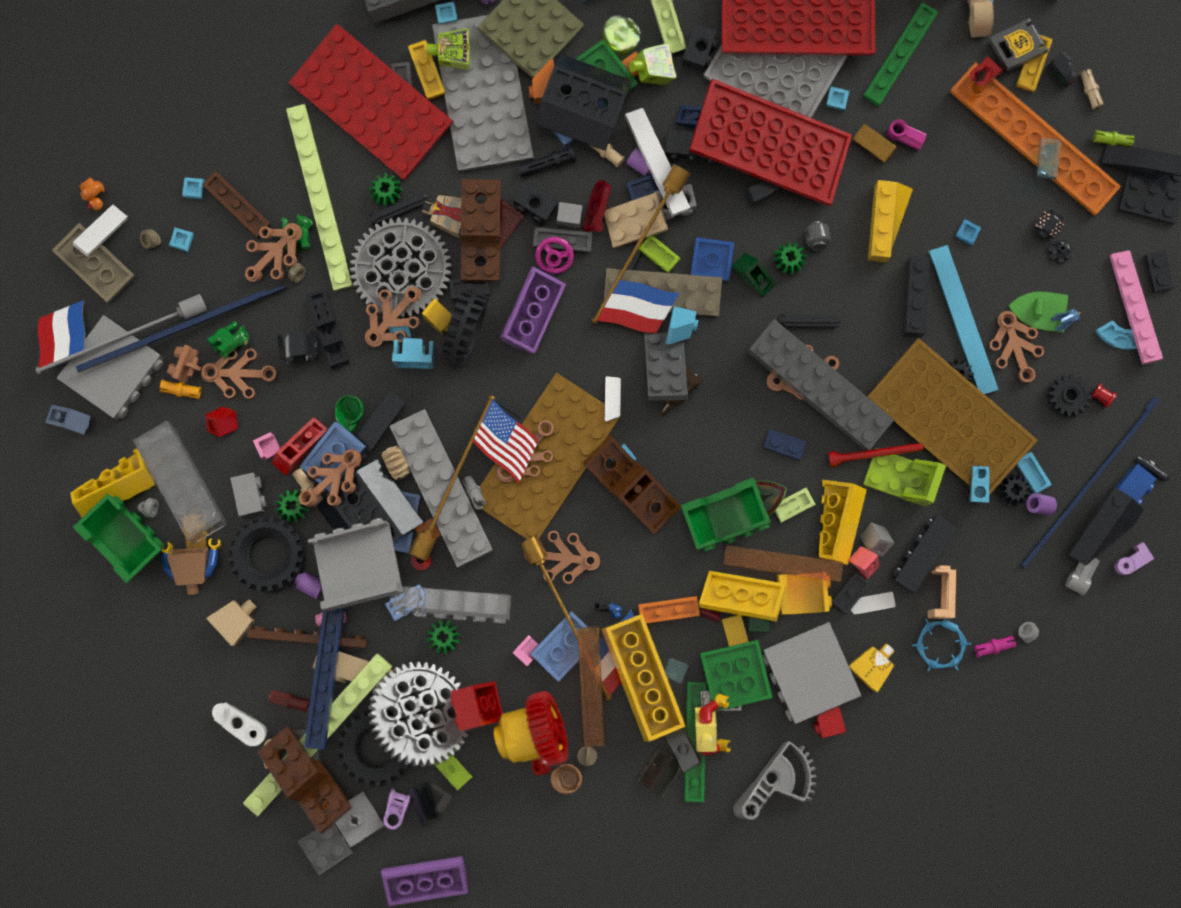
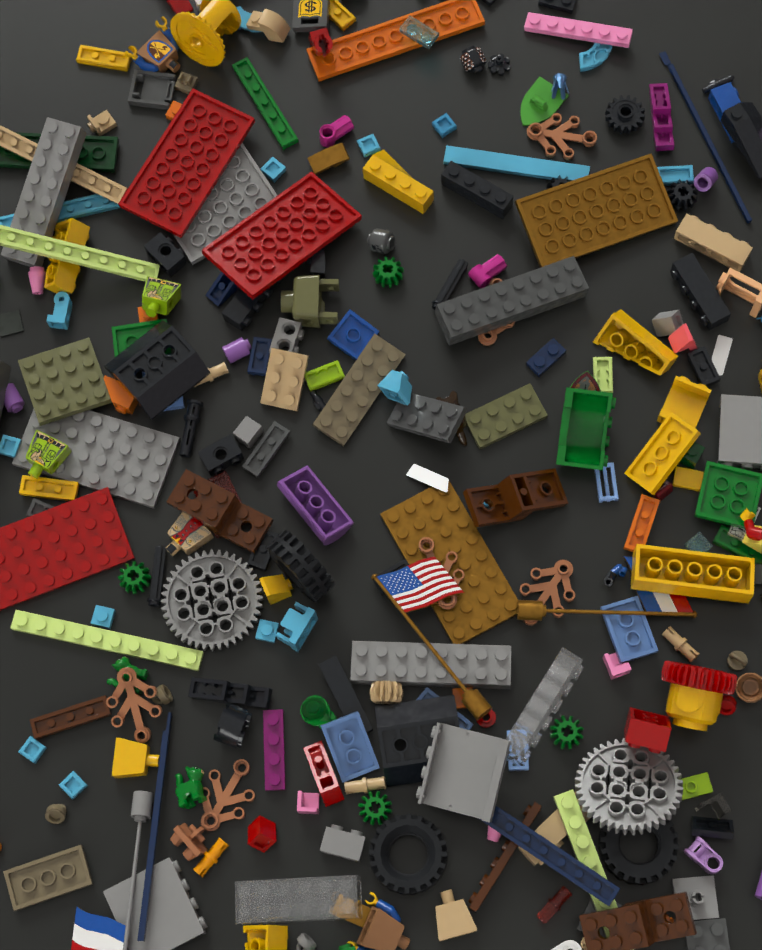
camera: 50 degrees left, 10 degrees down
(100, 230) = (22, 855): white tile -> none
(228, 276) = (132, 759): none -> yellow torso
(298, 393) = (274, 750): none -> magenta plate
(309, 584) = (456, 829): medium lavender brick -> none
(333, 477) = (370, 752): nougat plant -> none
(337, 182) = (103, 617): none -> medium azure plate
(390, 318) = (254, 631): nougat plant -> none
(474, 492) = (450, 636): light grey pin -> none
(560, 254) = (282, 462): dark pink piece -> none
(574, 700) = (680, 644): none -> tan pin
(591, 686) = (678, 622): clear orange plate -> none
(596, 207) = (254, 406): dark red plate -> none
(621, 34) = (115, 311): clear neon green tile -> none
(636, 303) = (357, 415): flag -> none
(655, 158) = (245, 334): white tile -> none
(679, 568) = (608, 498): none -> light blue tile
(707, 436) = (505, 416): none -> olive plate
(720, 200) = (306, 301): none -> olive piece
(753, 274) = (385, 307): dark green slope -> none
(783, 563) = (650, 407): clear orange plate -> none
(835, 346) = (484, 273): none -> dark pink piece
(838, 458) = (581, 320): red piece -> none
(905, 479) = (632, 270): lime bracket -> none
(909, 173) = (368, 145): none -> medium azure tile
(979, 484) = (665, 217): medium azure leg -> none
(980, 542) = (713, 242): none -> tan brick
(1086, 431) = (661, 117): none -> magenta slope
(1103, 395) = (638, 89): red bush -> none

